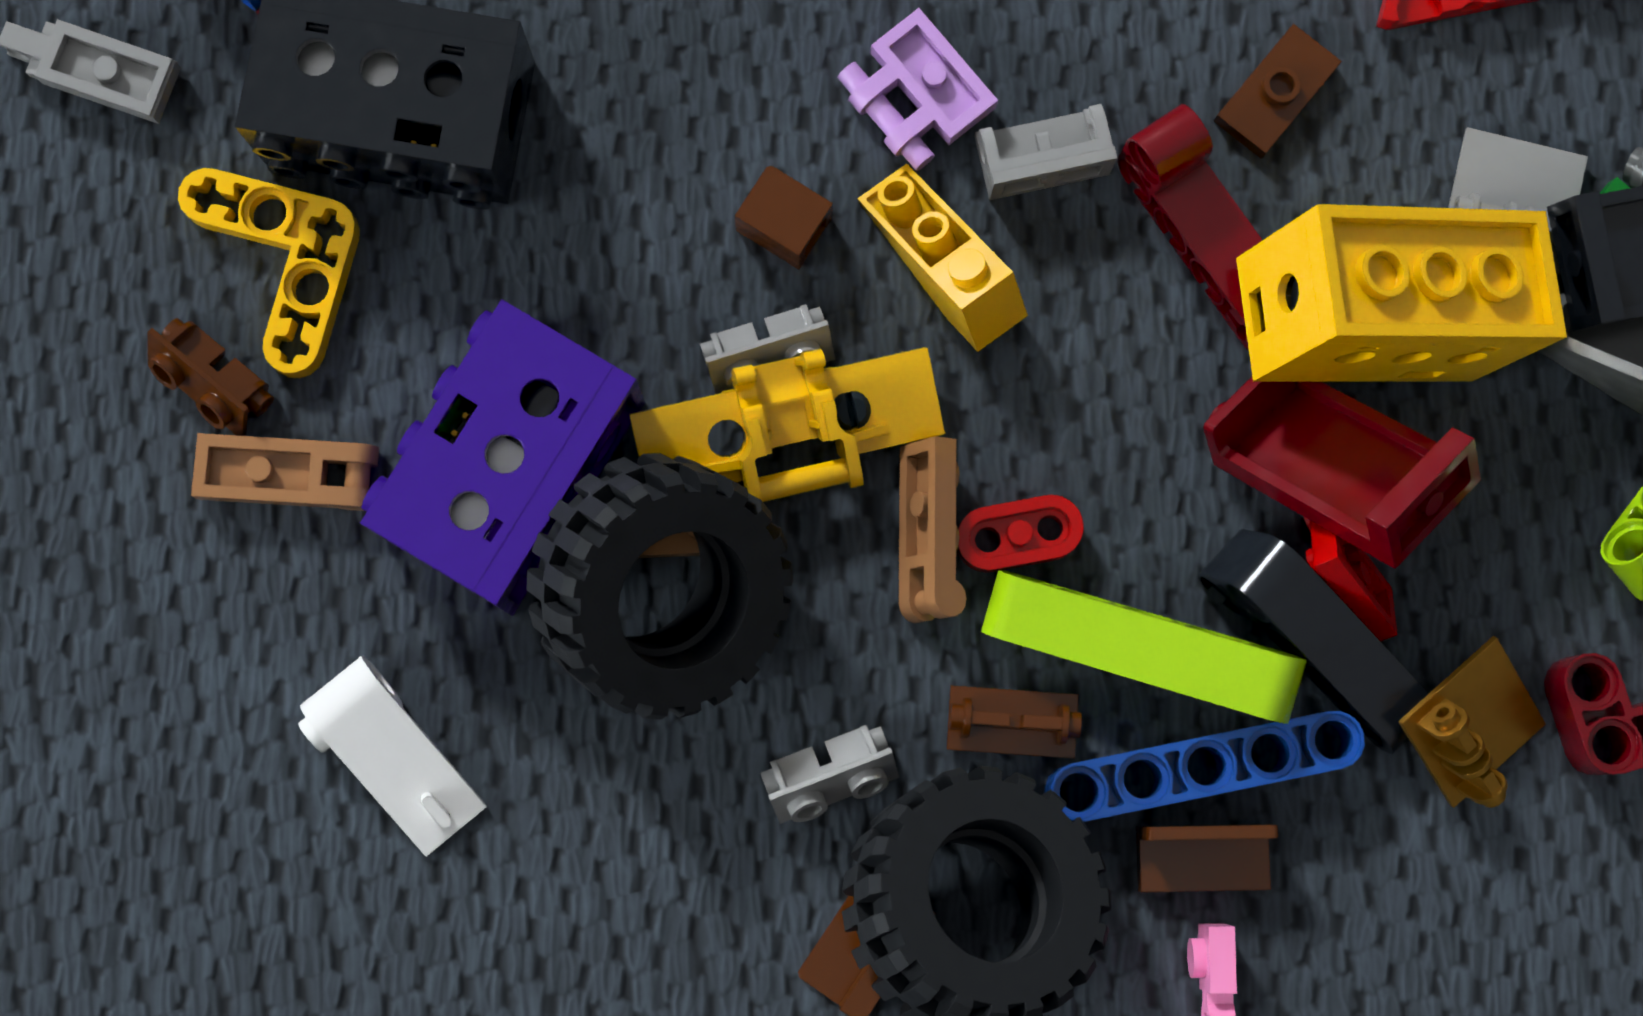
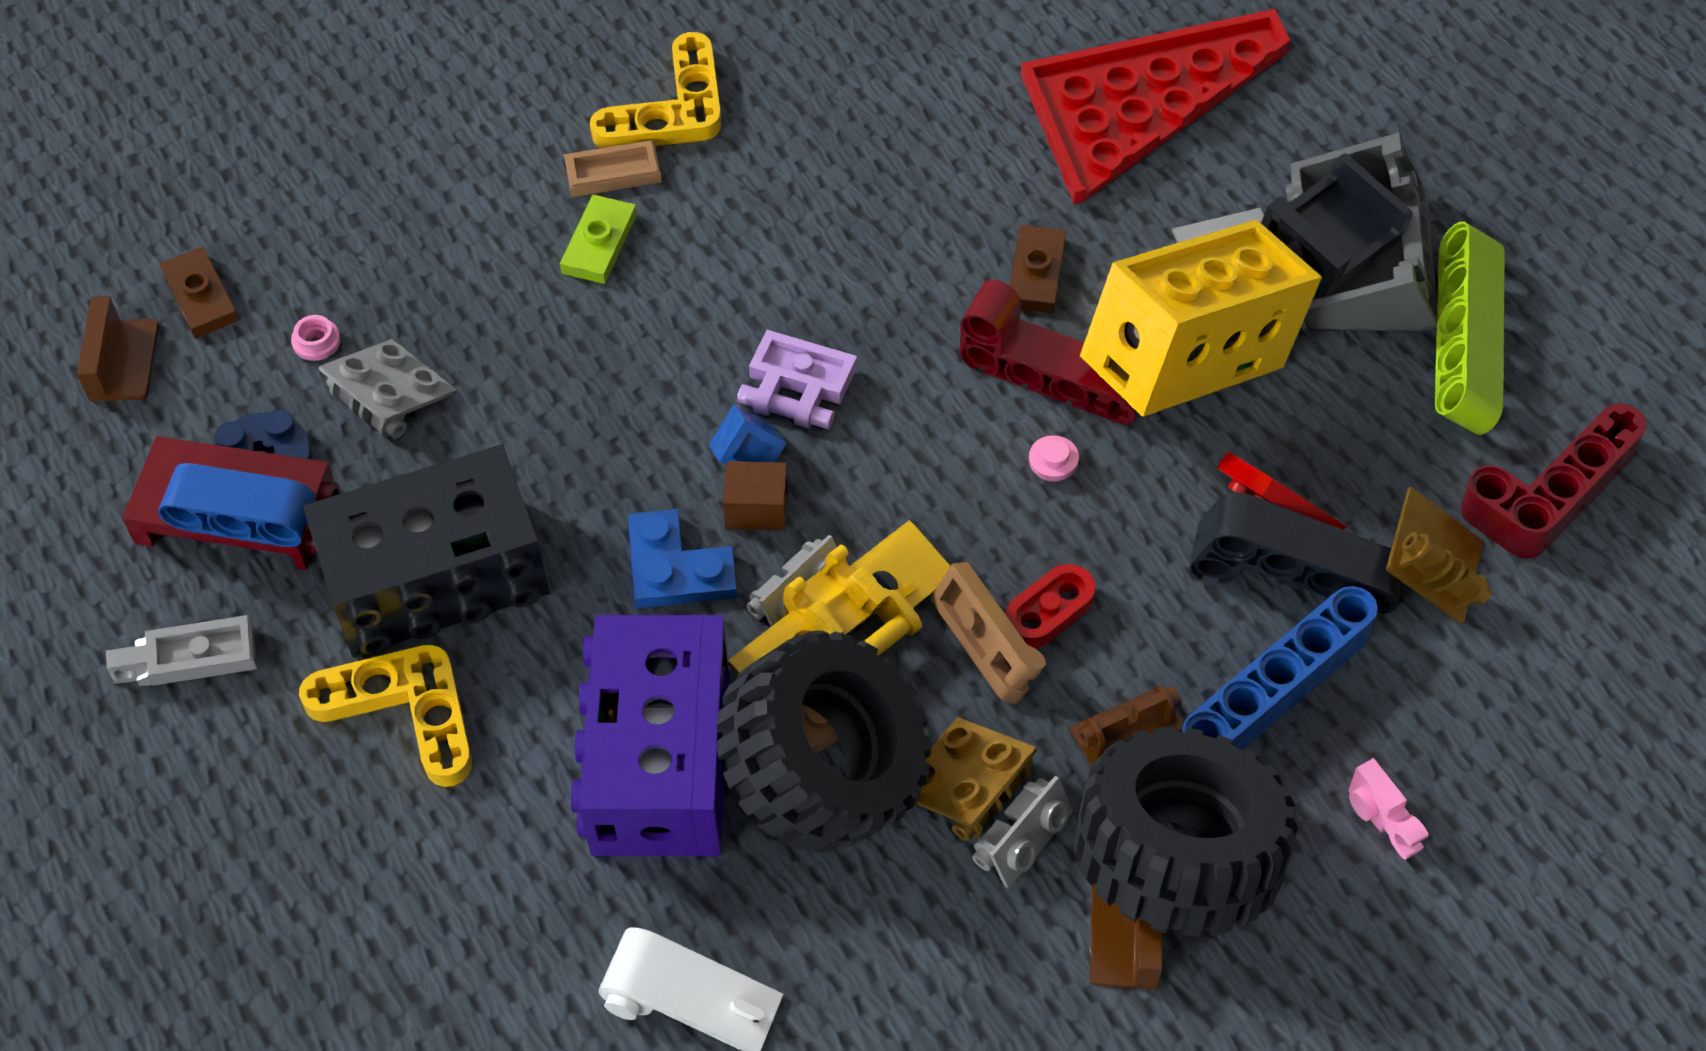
camera: 25 degrees left, 25 degrees down
(186, 358) = (379, 813): reddish brown hinge -> none
(281, 471) = (489, 843): medium nougat plate -> none
(638, 247) = (673, 576): none -> blue plate
(814, 141) = (746, 439): none -> blue panel
(814, 680) = (971, 773): none -> pearl gold hinge
(946, 257) = (891, 465): yellow slope -> none
(1046, 153) = (910, 375): light grey hinge -> none
(1139, 352) = (1053, 458): none -> bright pink plate
(1144, 646) = (1183, 619): lime beam -> none
(1204, 857) = (1319, 735): reddish brown panel -> none
(1342, 463) = (1232, 434): dark red panel -> none

